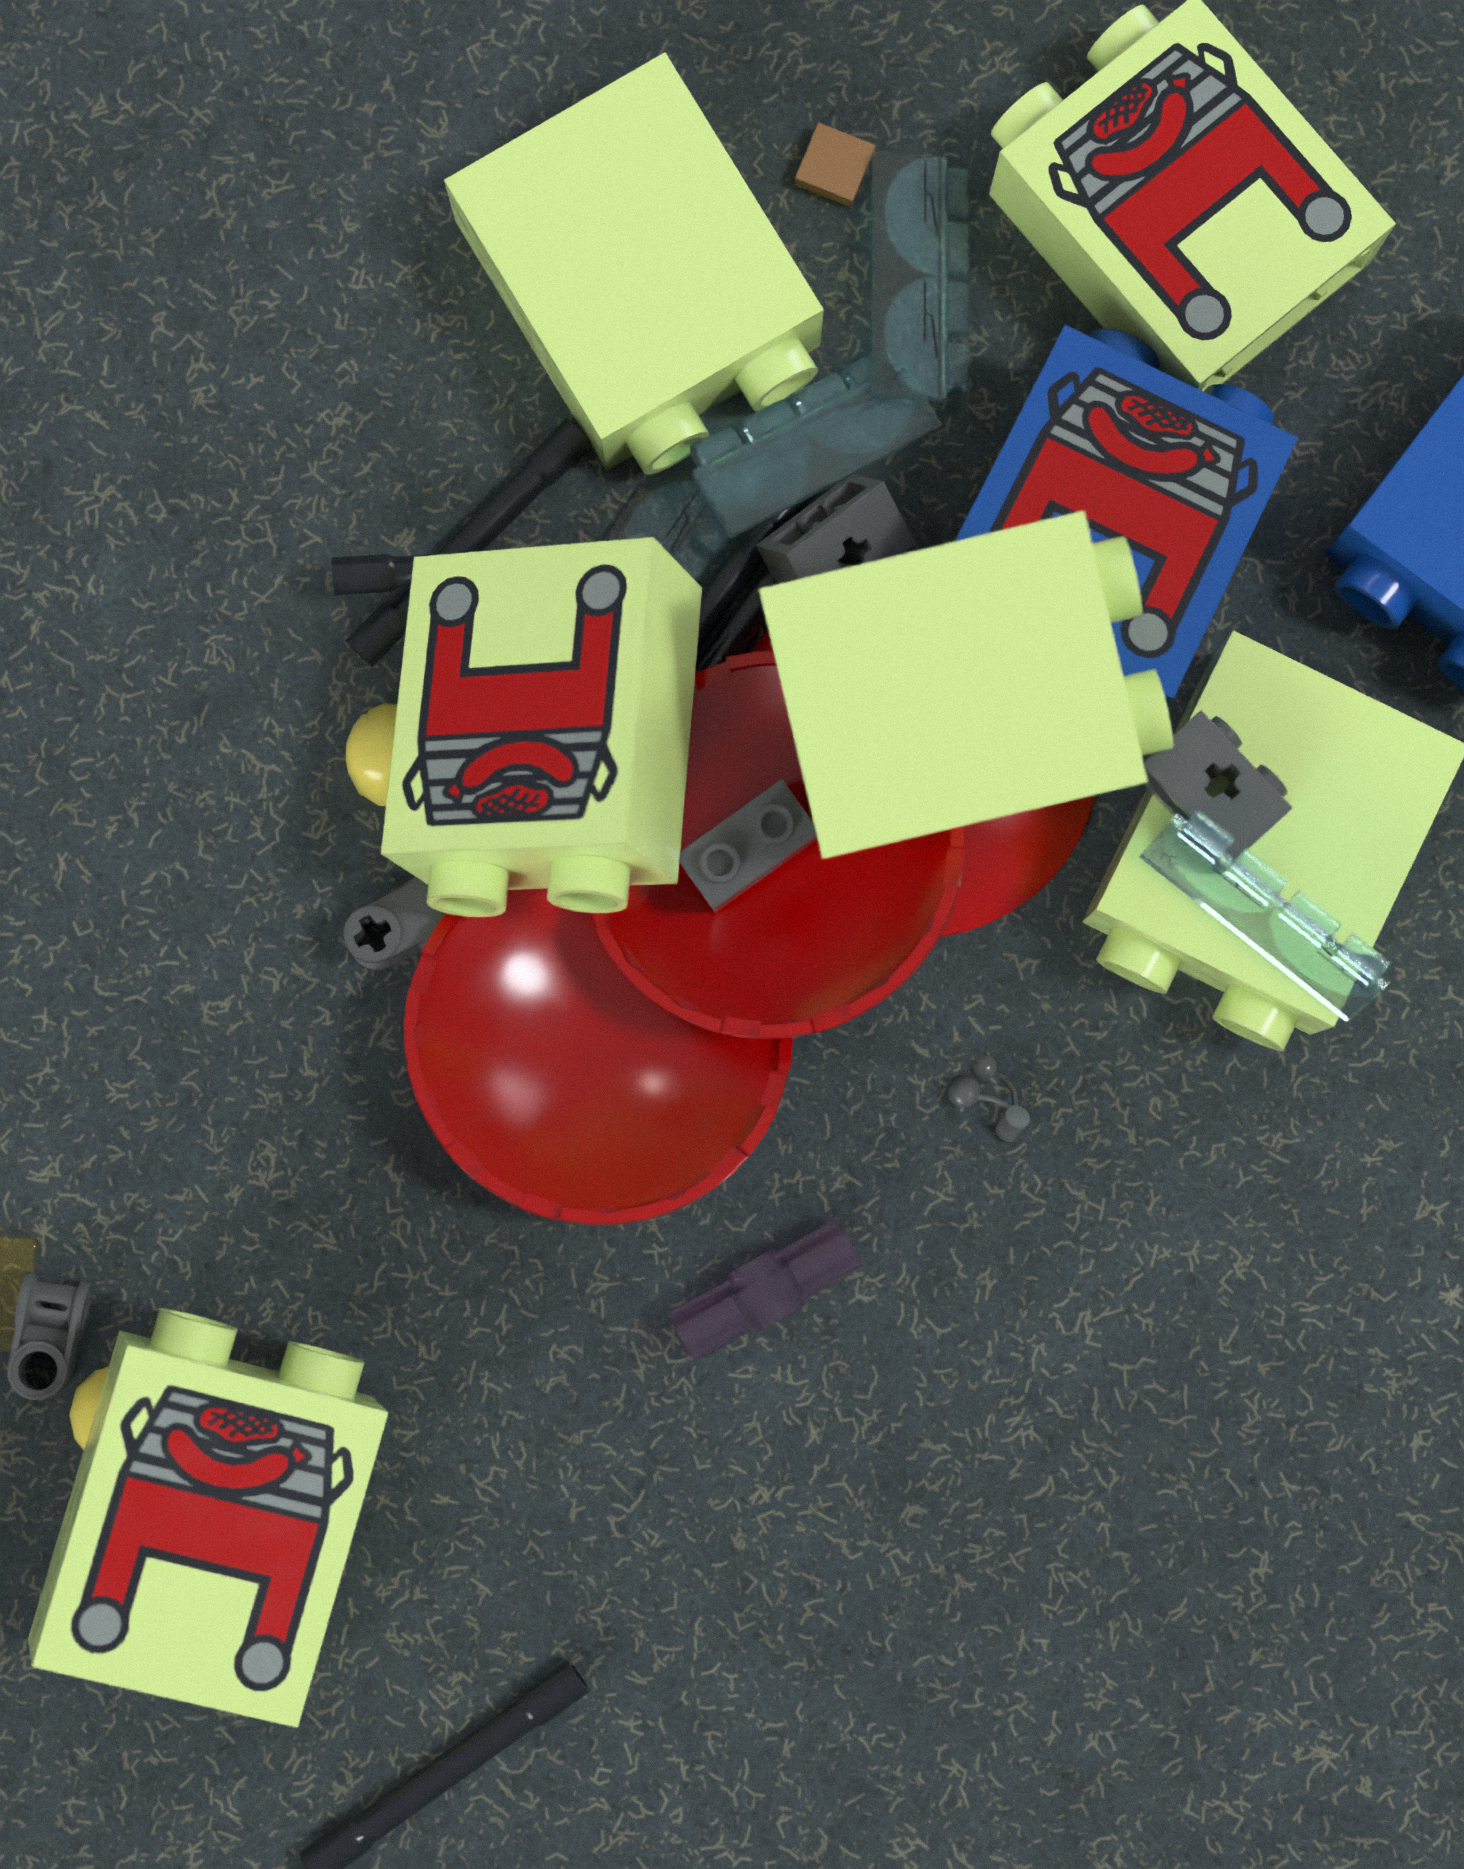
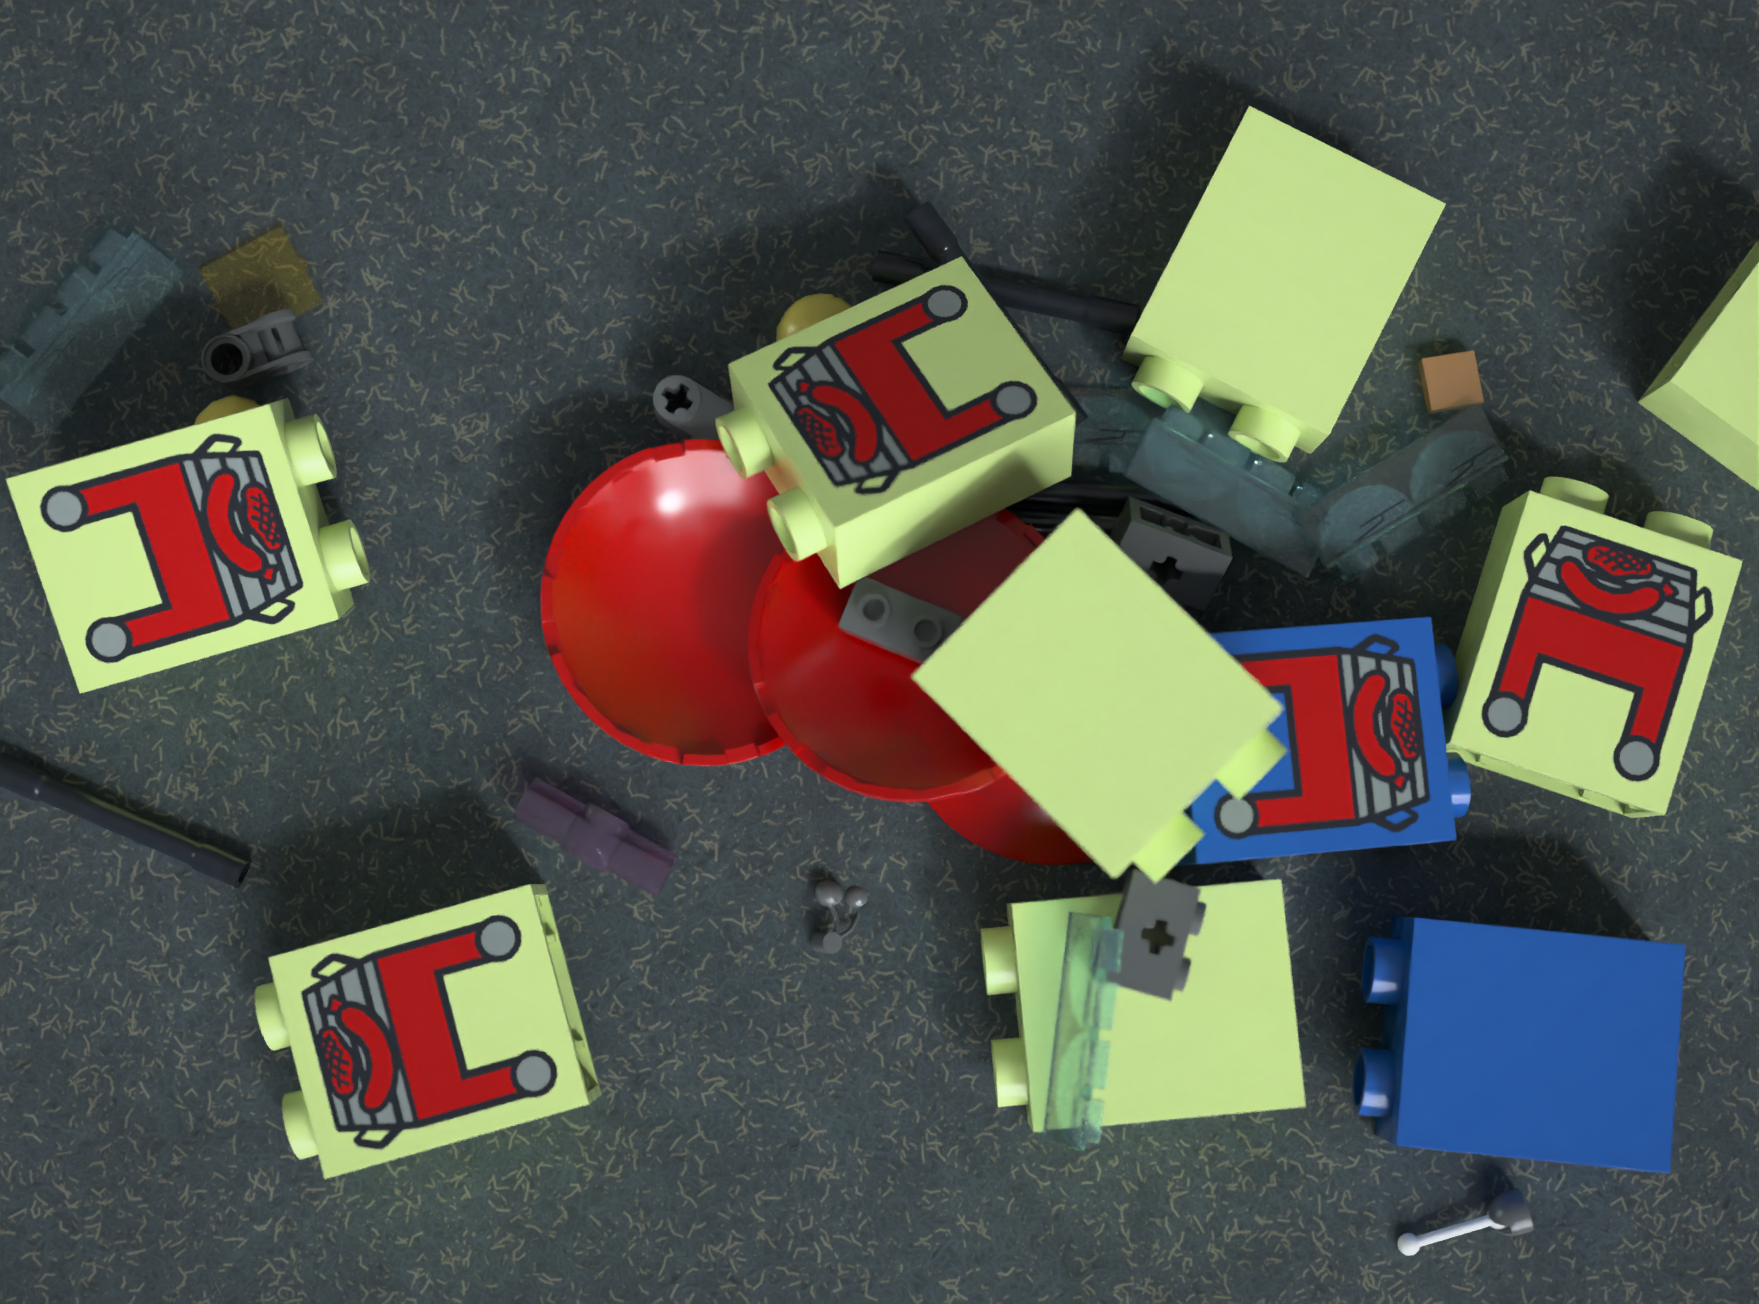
camera: 60 degrees right, 0 degrees up
(862, 1580) = (428, 1031): none -> brick

